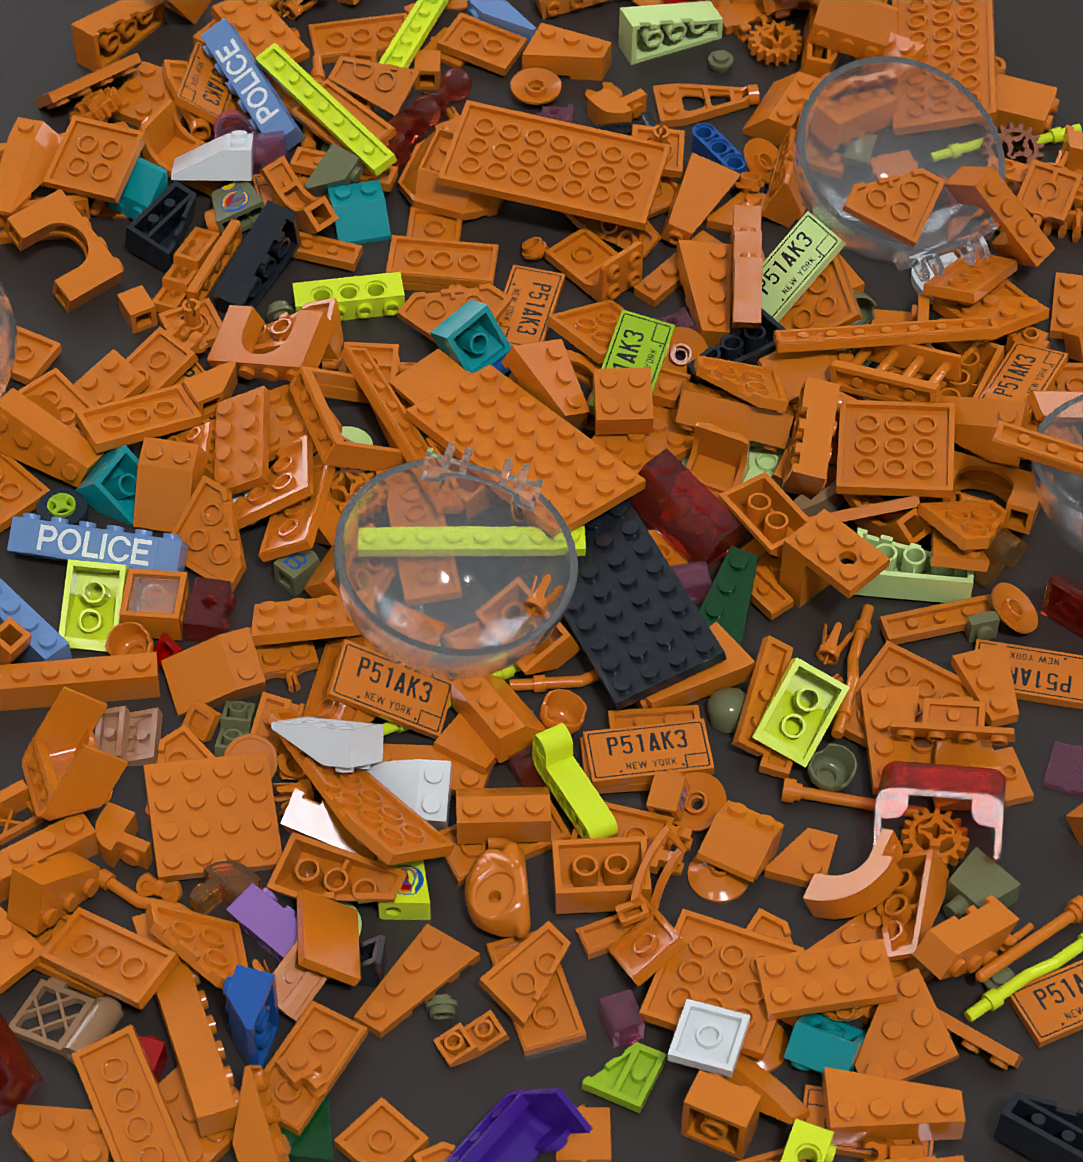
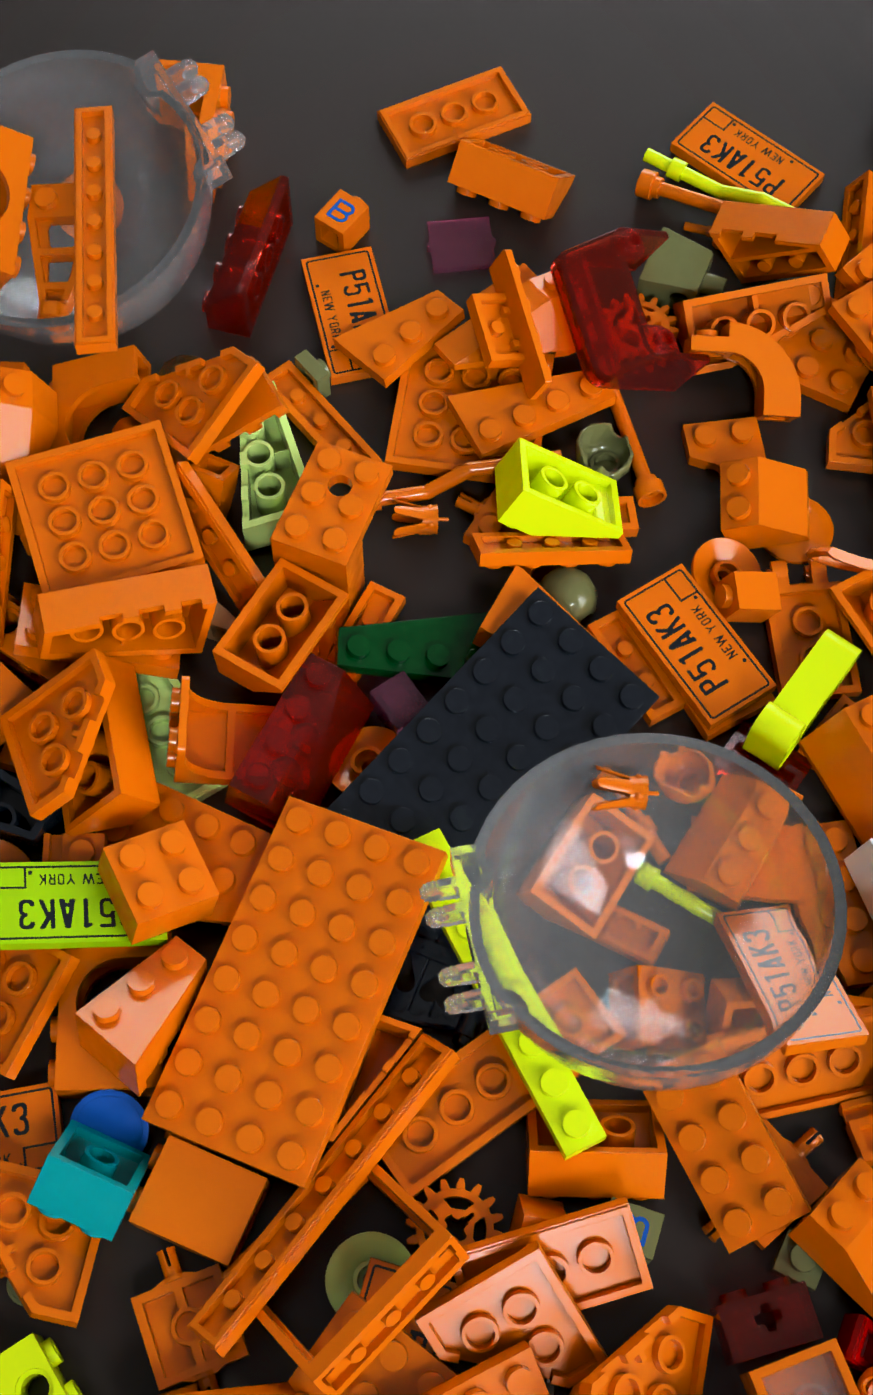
camera: 115 degrees left, 15 degrees up
(1014, 608) = (275, 348): orange dish -> none

